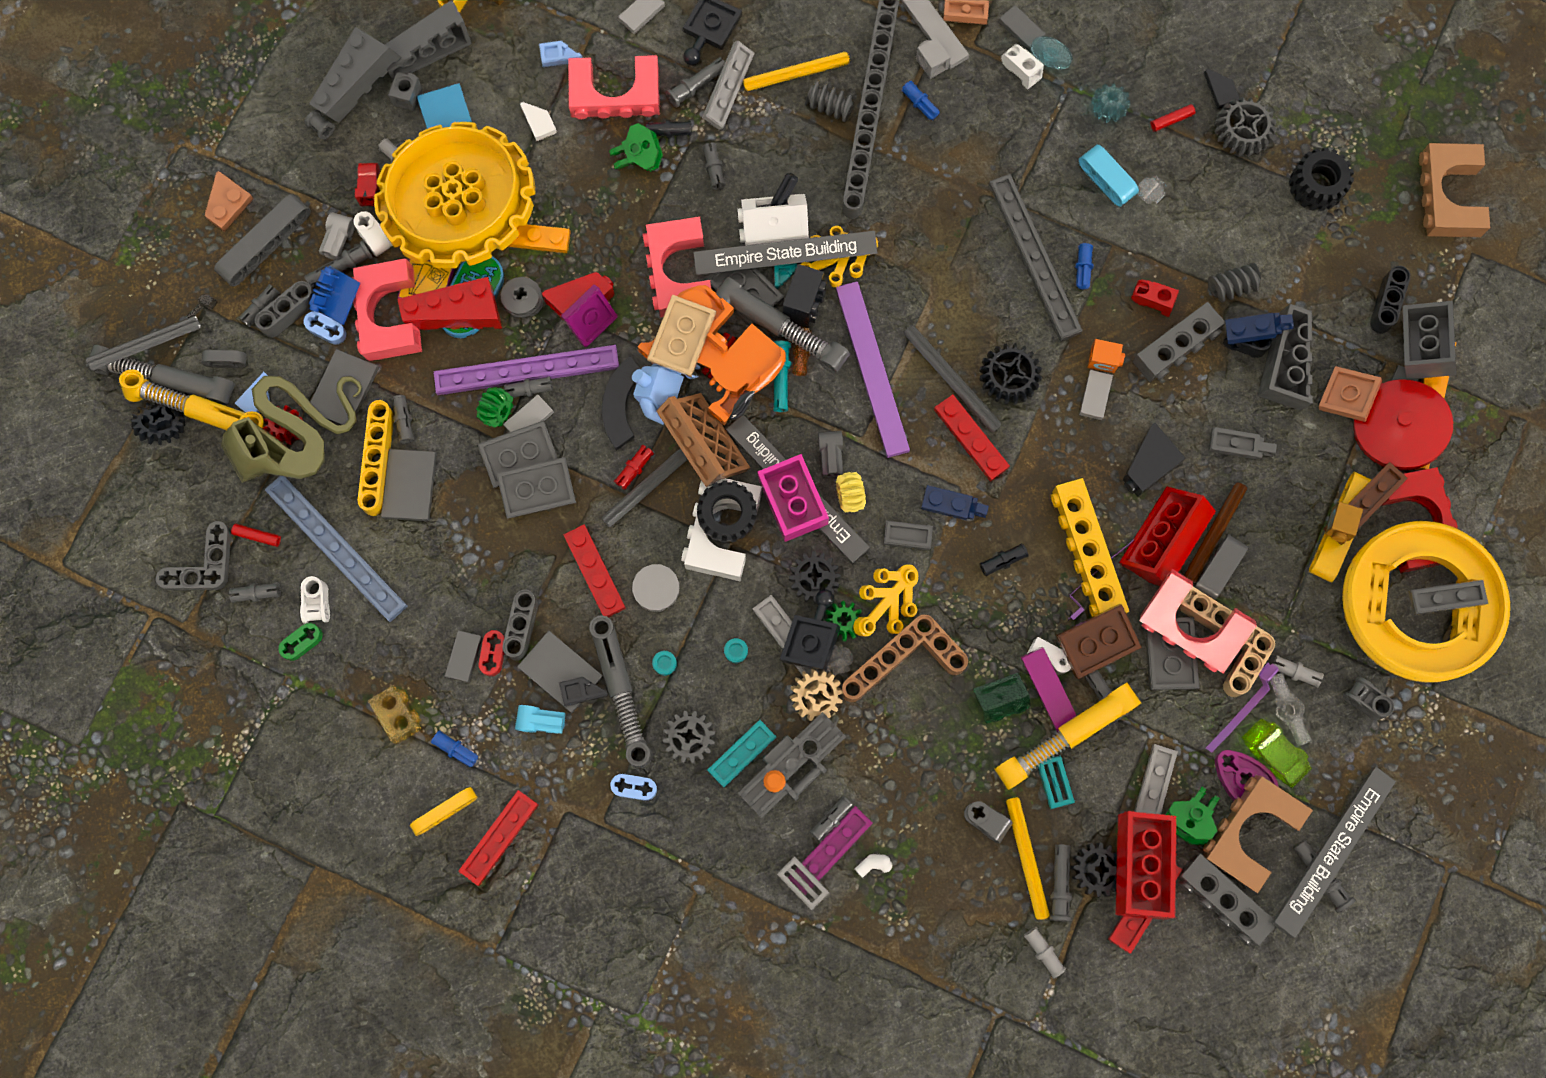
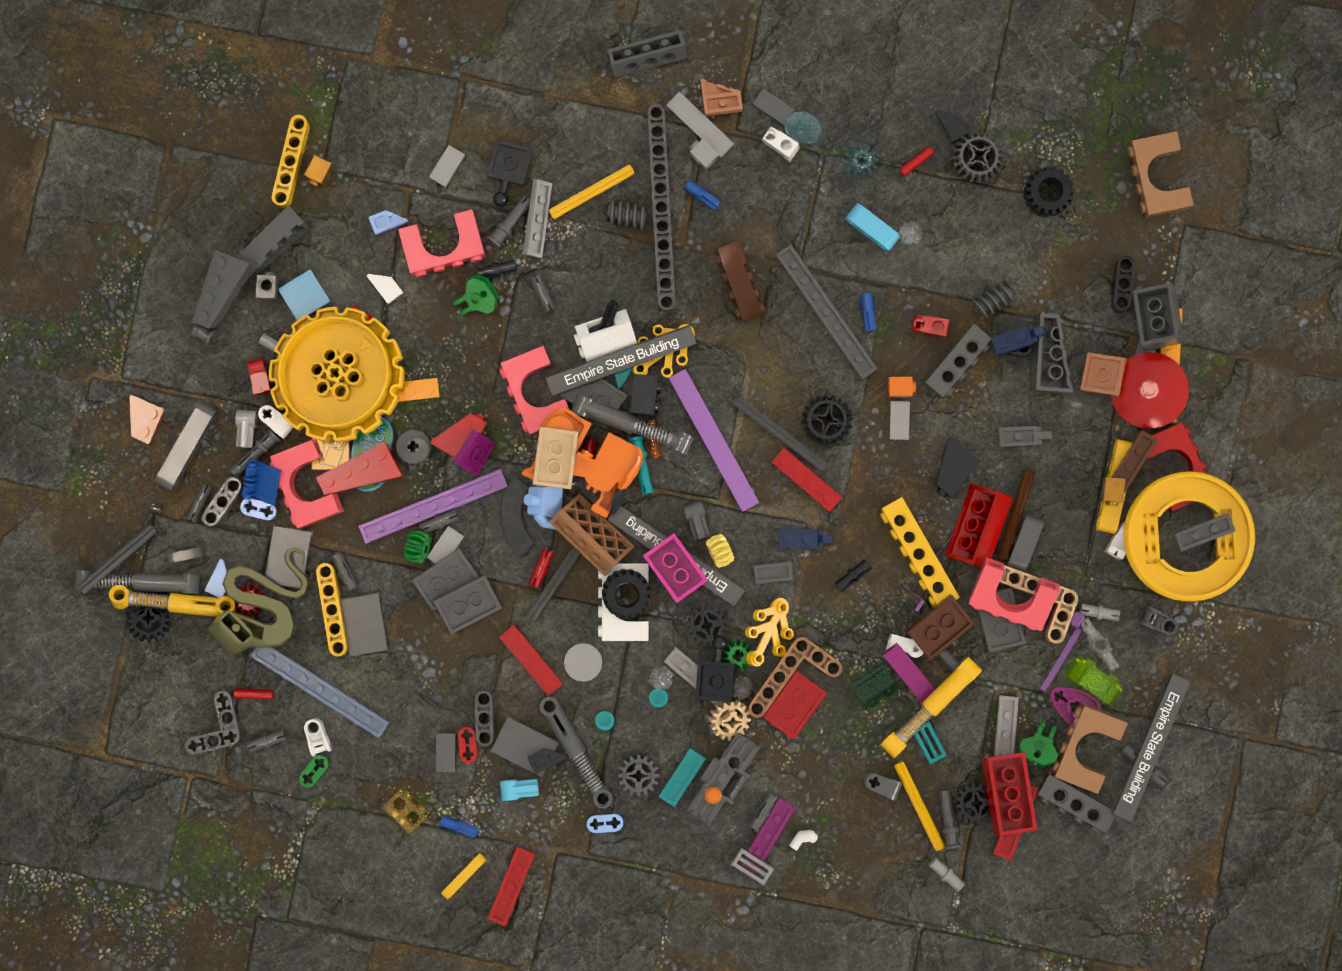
camera: 10 degrees left, 10 degrees up
(744, 626) = (661, 677): none -> clear gear
(899, 697) = (794, 705): none -> red tile
(944, 199) = (740, 282): none -> reddish brown wedge
(1332, 595) = (1116, 545): none -> white leg

